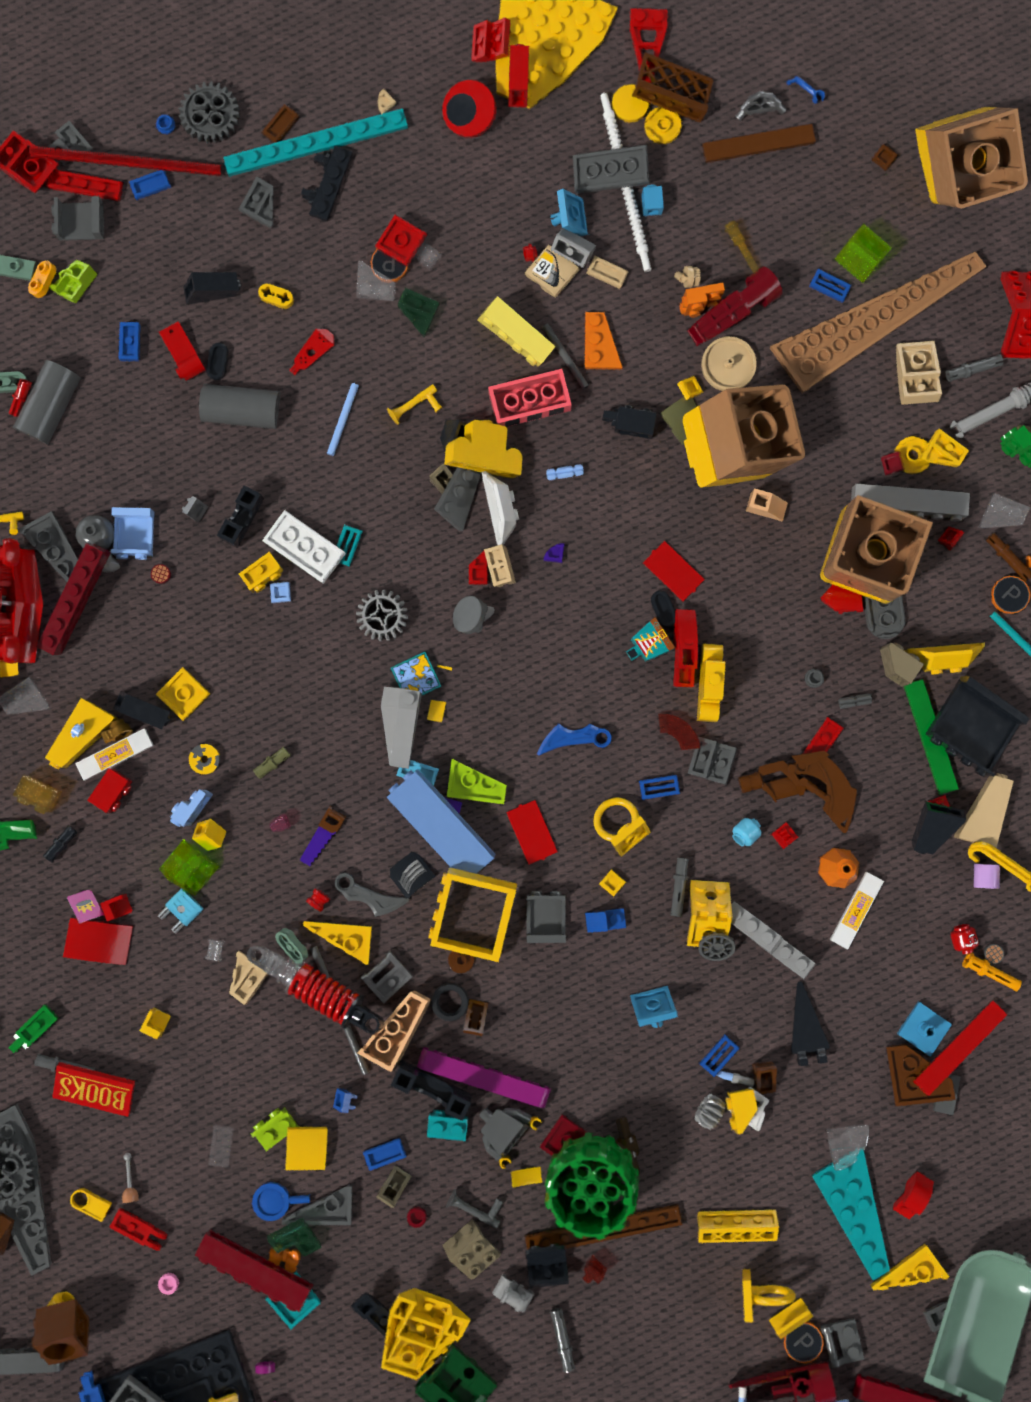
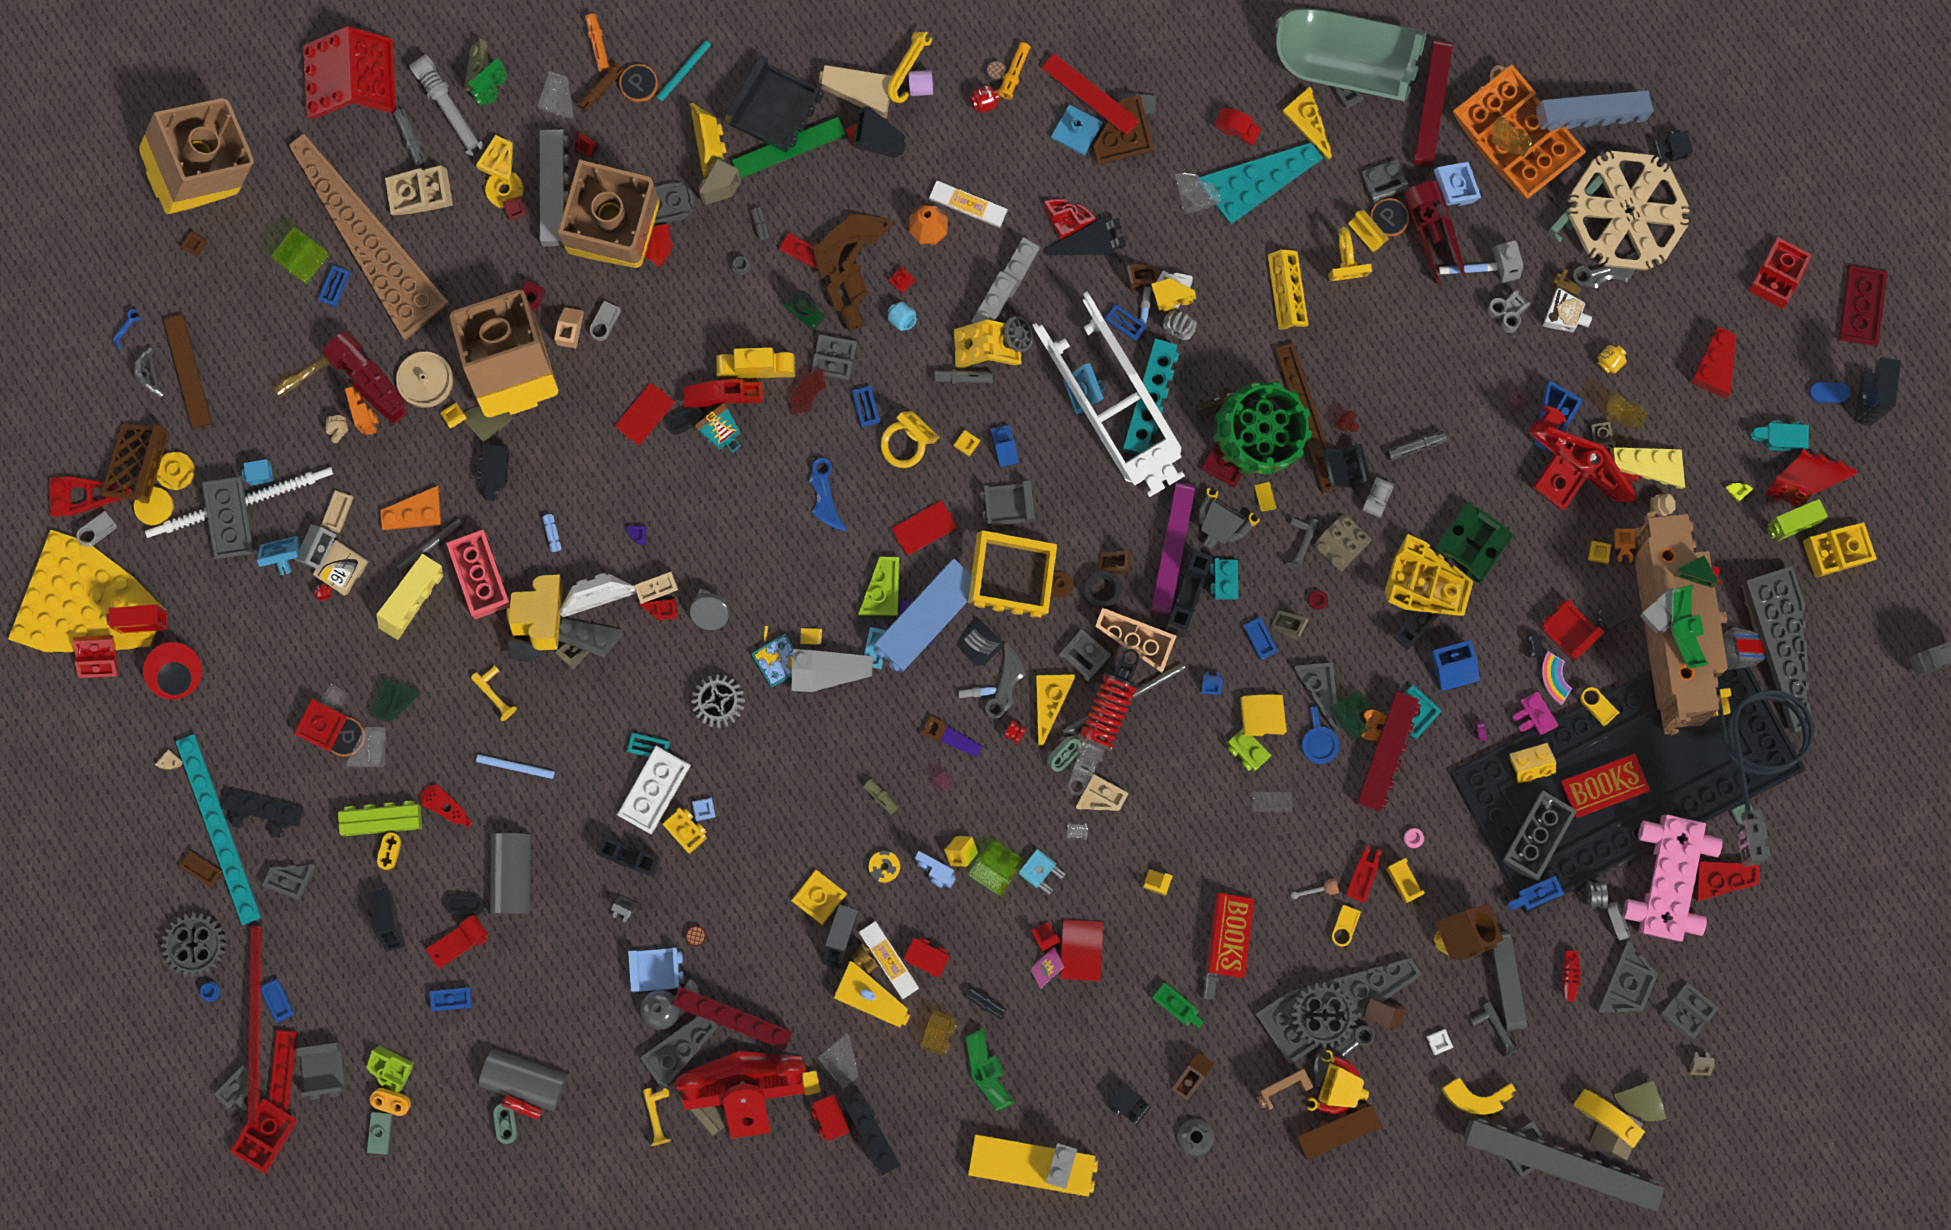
camera: 90 degrees left, 5 degrees down
(124, 1270) = (1404, 881): none -> yellow panel
(306, 289) = (380, 820): none -> lime brick
(333, 1351) = (1455, 665): none -> blue slope
(363, 866) = (976, 692): none -> light grey piece
(569, 1069) = (1154, 463): none -> white piece
(614, 53) = (100, 526): none -> light grey piece
(686, 1087) = (1160, 350): none -> teal brick
(762, 736) = (805, 309): none -> piece
(775, 543) = (606, 316): none -> light grey piece
(808, 469) = (539, 293): none -> dark red brick
(833, 1008) = (1066, 218): none -> red brick

